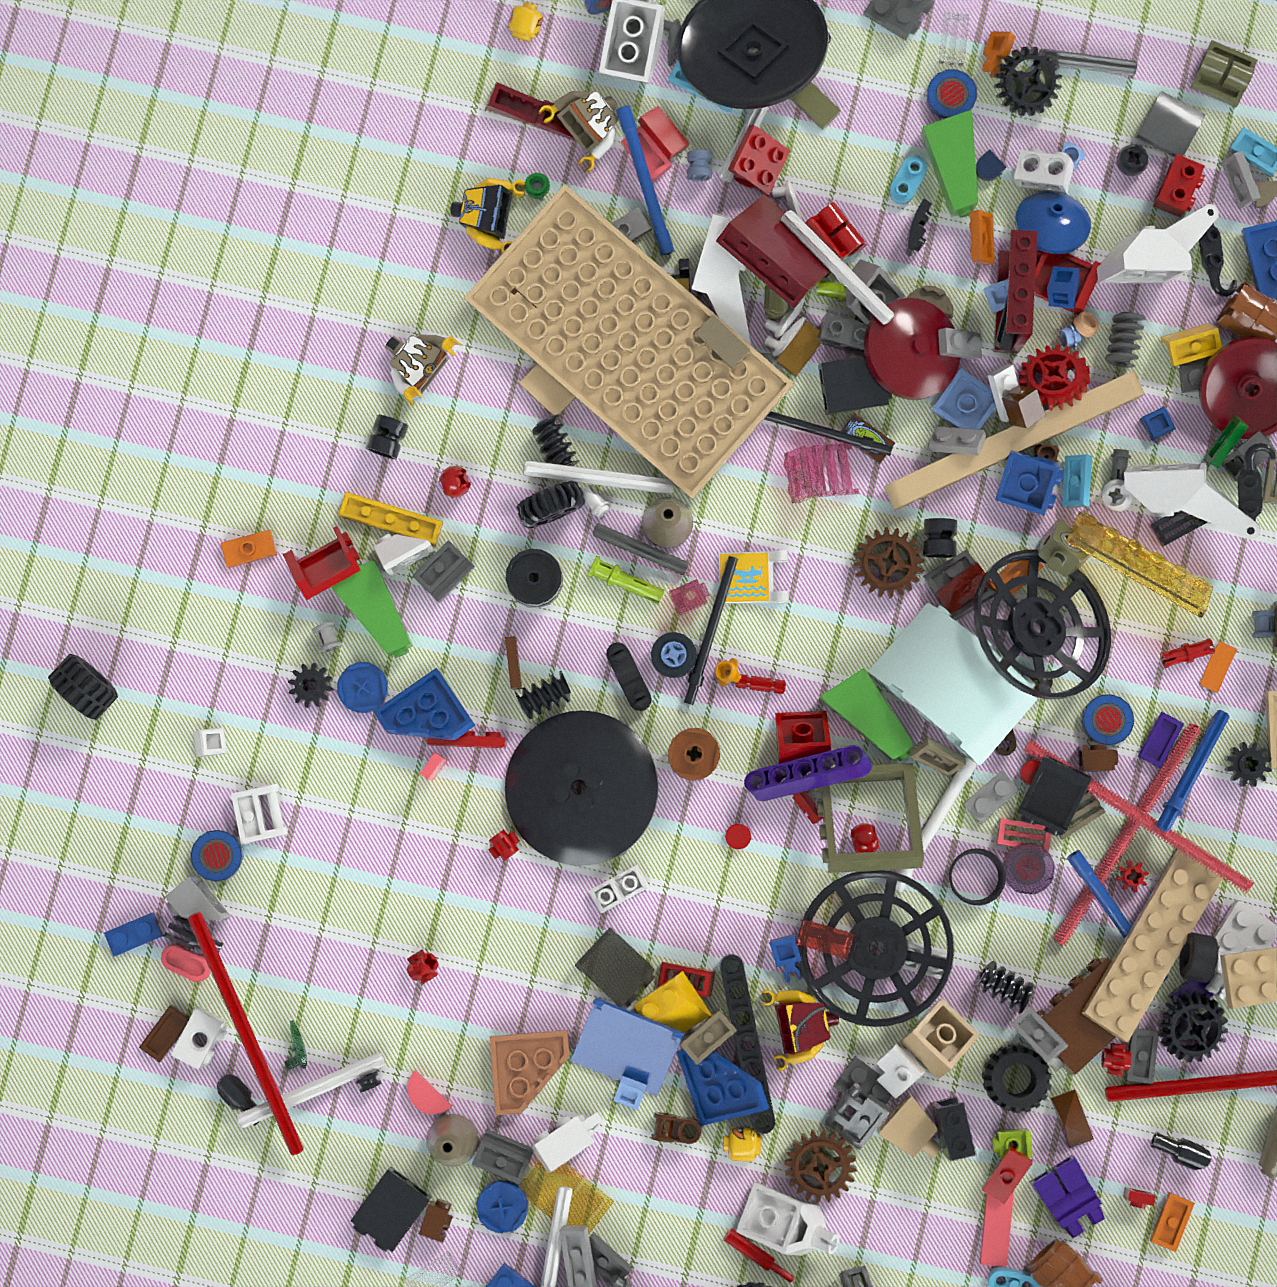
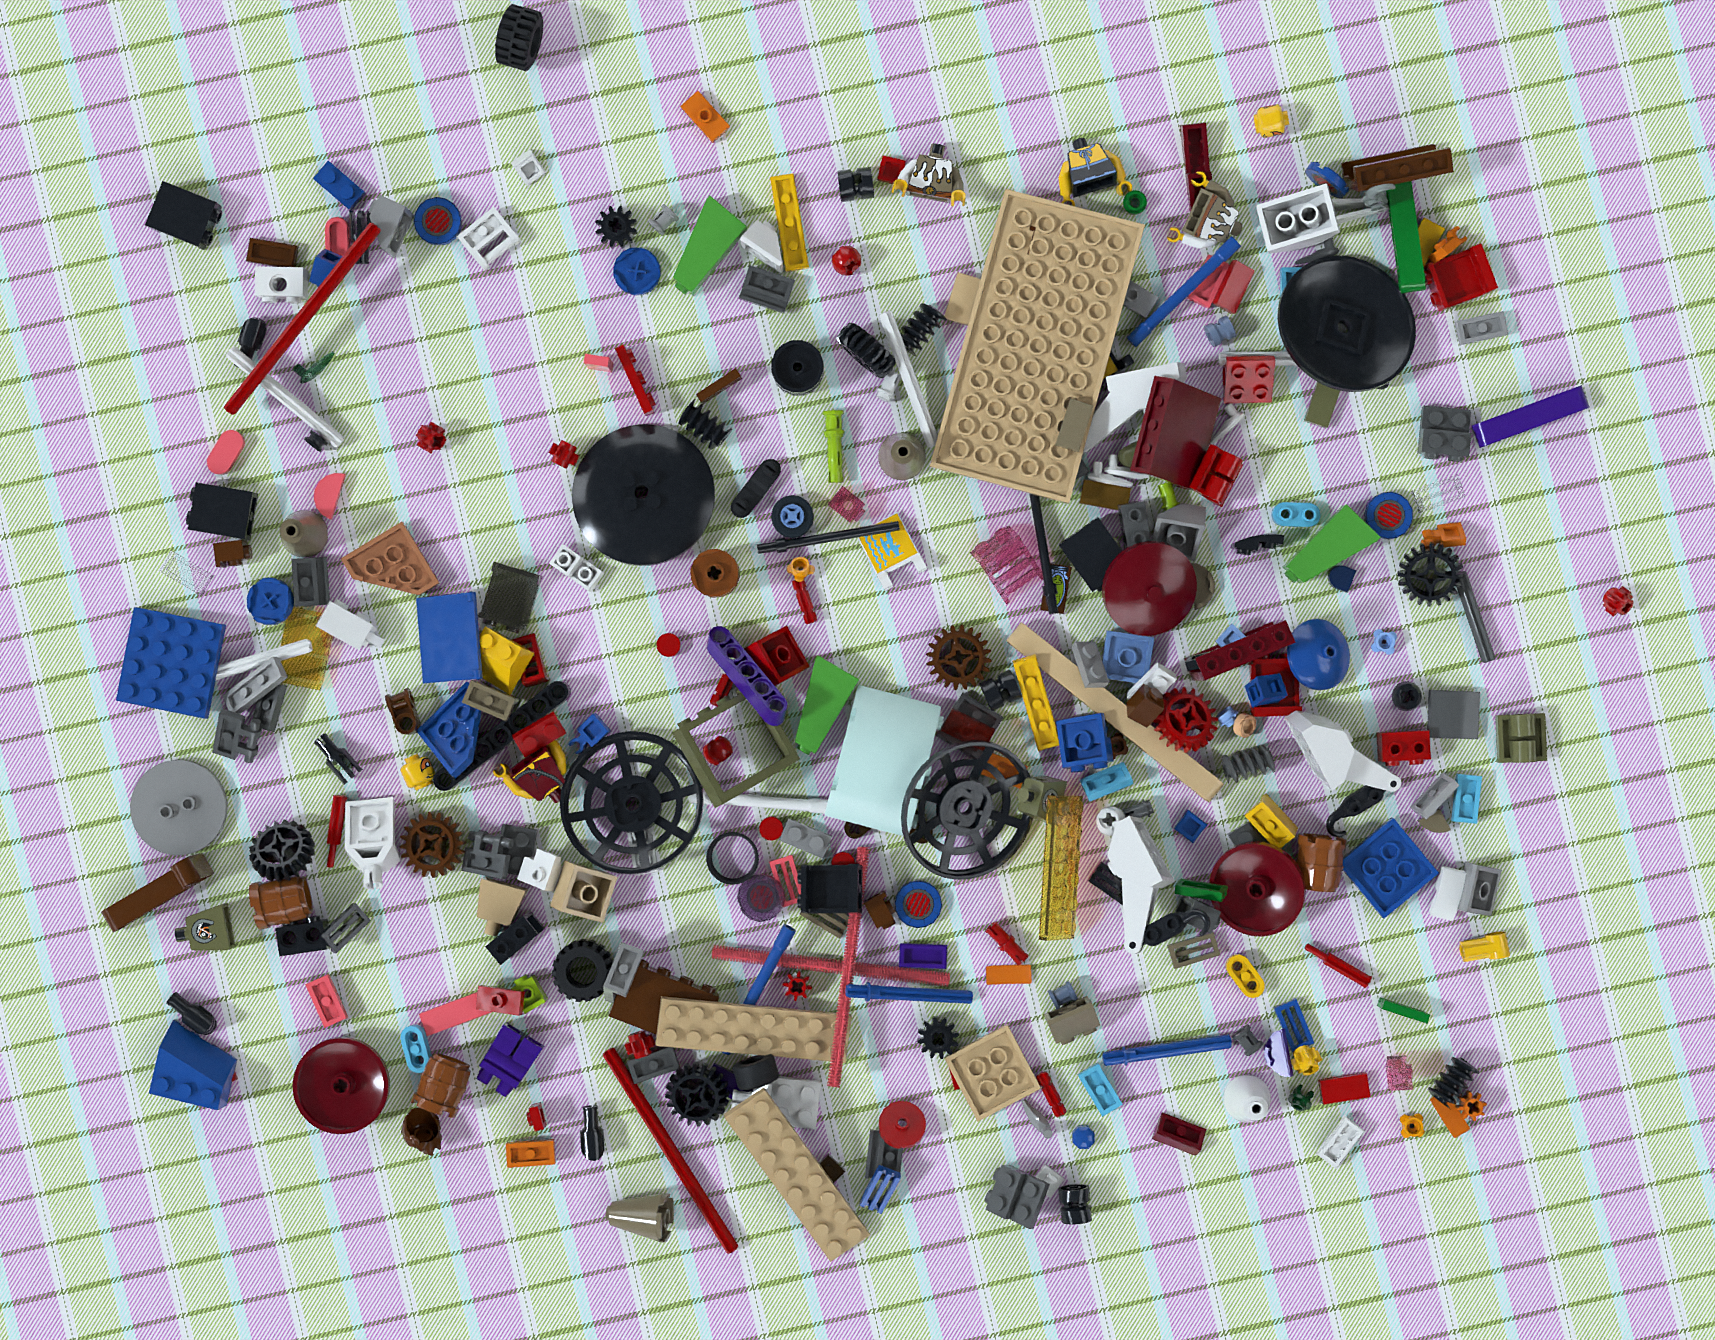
camera: 60 degrees right, 5 degrees up
(84, 1100) = (184, 215): none -> black panel
(205, 987) = (323, 265): none -> blue brick
(324, 566) = (719, 186): red panel -> none
(334, 1177) = (225, 452): none -> coral tile
(389, 398) = (890, 169): none -> red tile
(425, 710) = (642, 333): blue plate -> none
(630, 1092) = (413, 659): light blue plate -> none
(640, 549) = (868, 446): dark grey axle -> none
(685, 1218) = (335, 756): none -> black arm
(764, 1005) = (539, 734): none -> red plate
(825, 939) = (618, 757): clear red plate -> none
(837, 267) = (1186, 490): white axle -> none
(940, 754) = (815, 777): dark tan tile -> none
(960, 343) = (1174, 626): light grey plate -> none
(965, 825) = (771, 828): none -> red tile
(968, 509) = (1036, 702): none -> yellow tile
(982, 237) = (1276, 601): orange plate -> none
(1006, 985) = (654, 924): black piece -> none
(1041, 177) = (1352, 626): white brick -> none
(1072, 1118) = (574, 1032): reddish brown slope -> none

